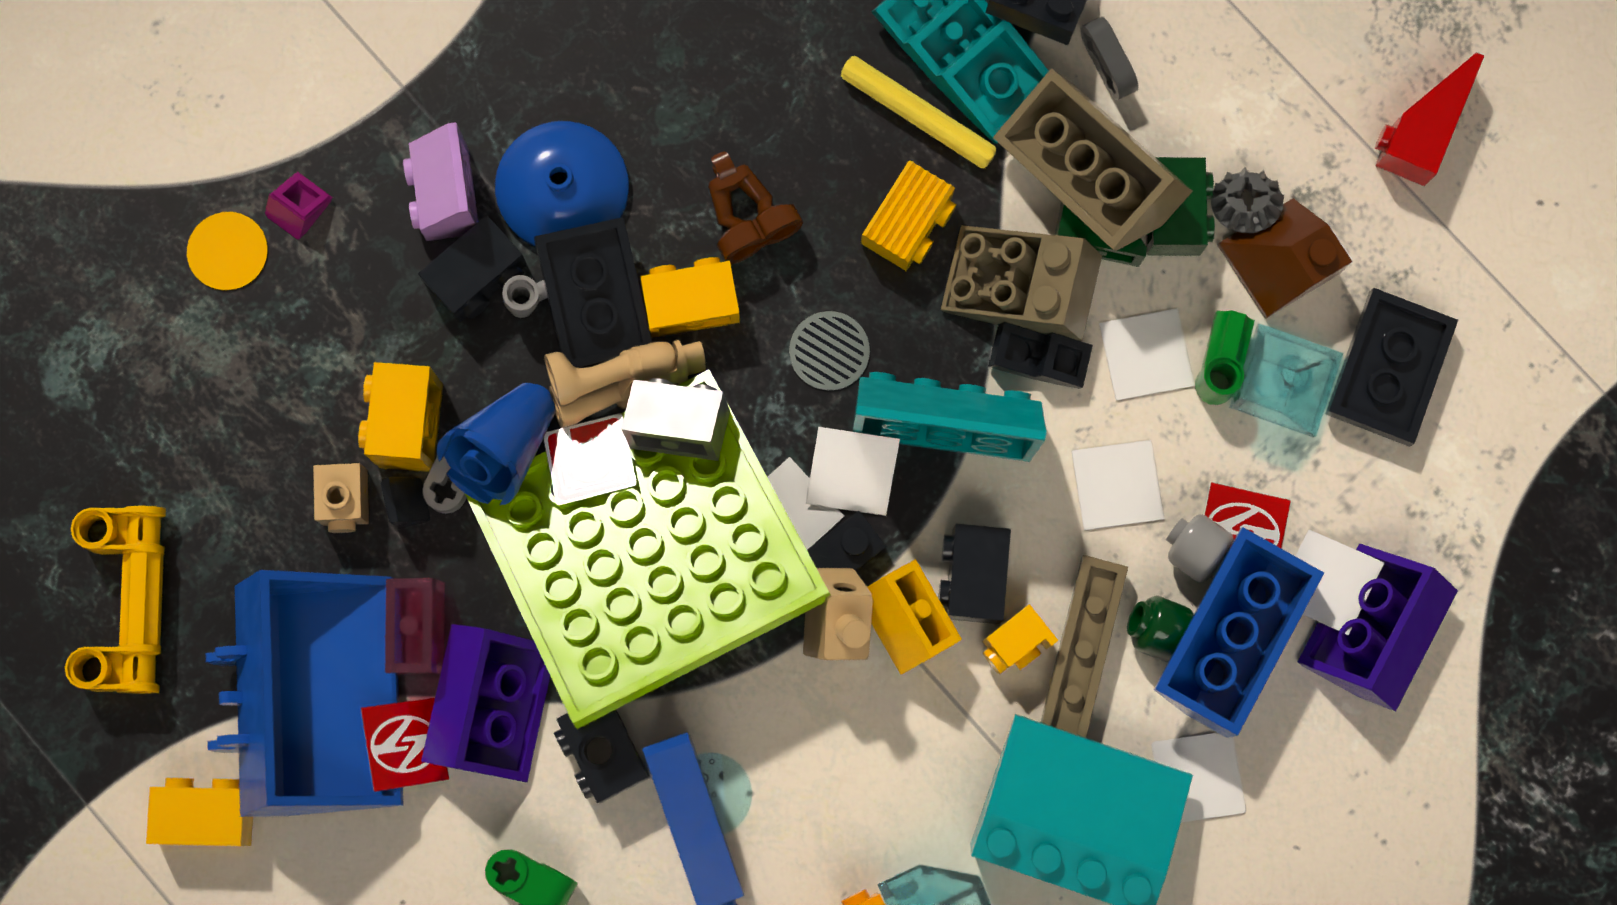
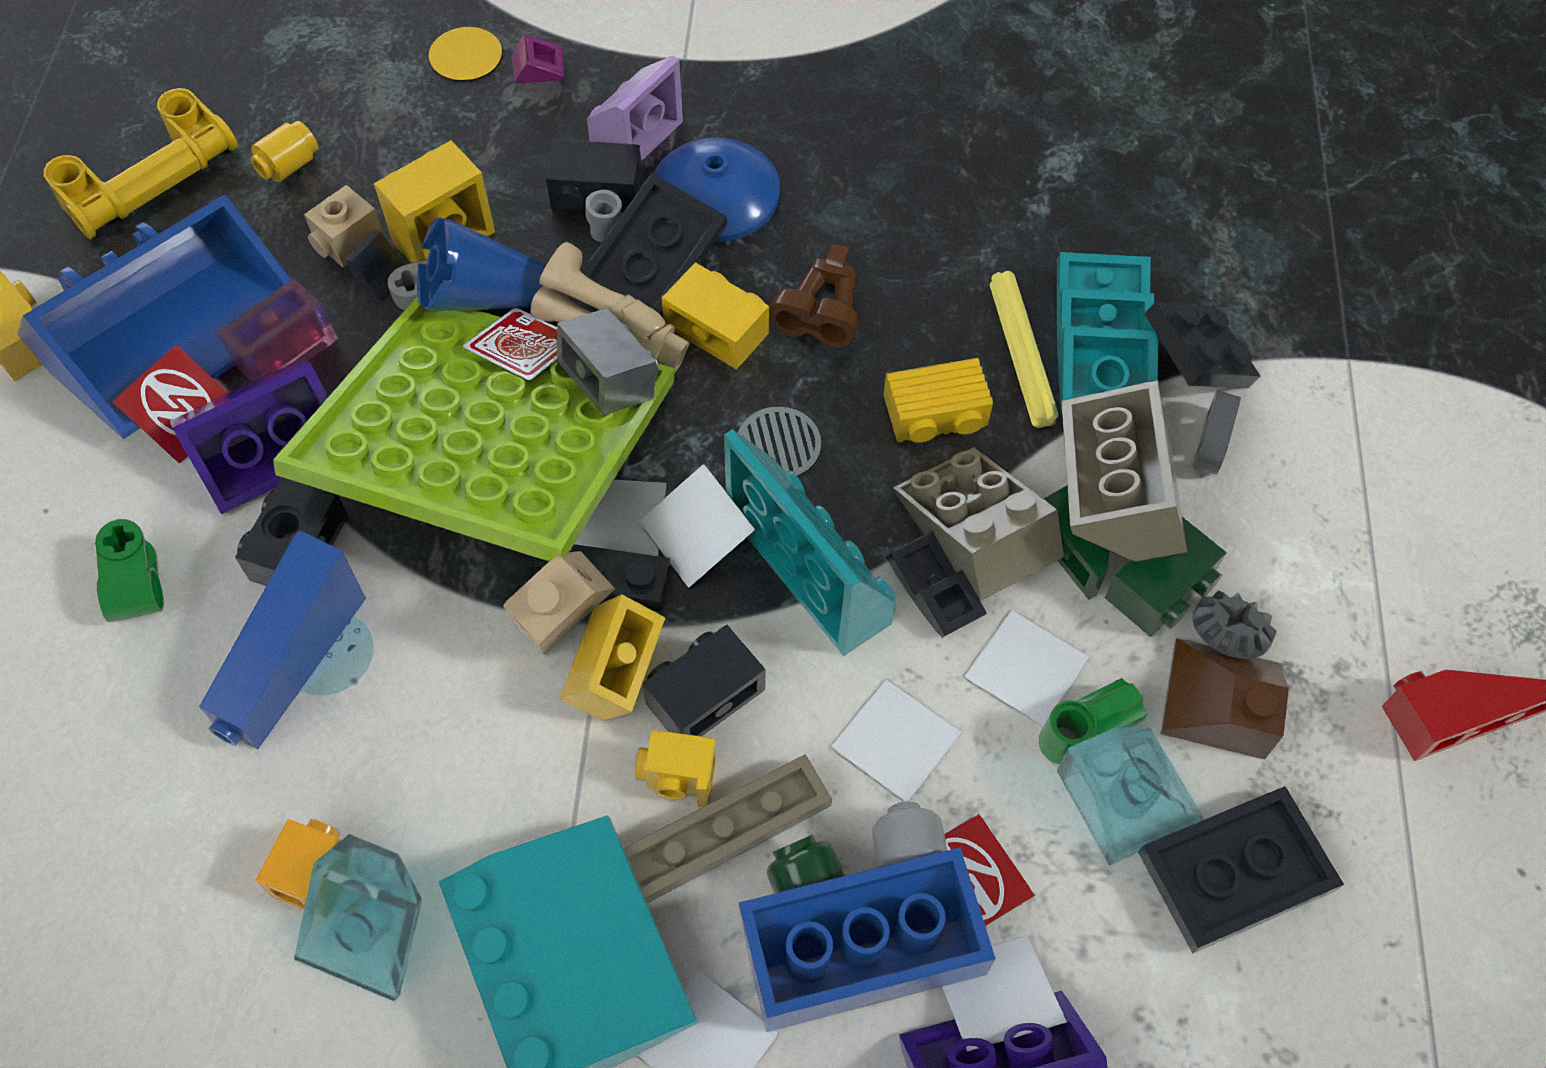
camera: 50 degrees right, 20 degrees down
(213, 480) = (283, 151): none -> yellow brick

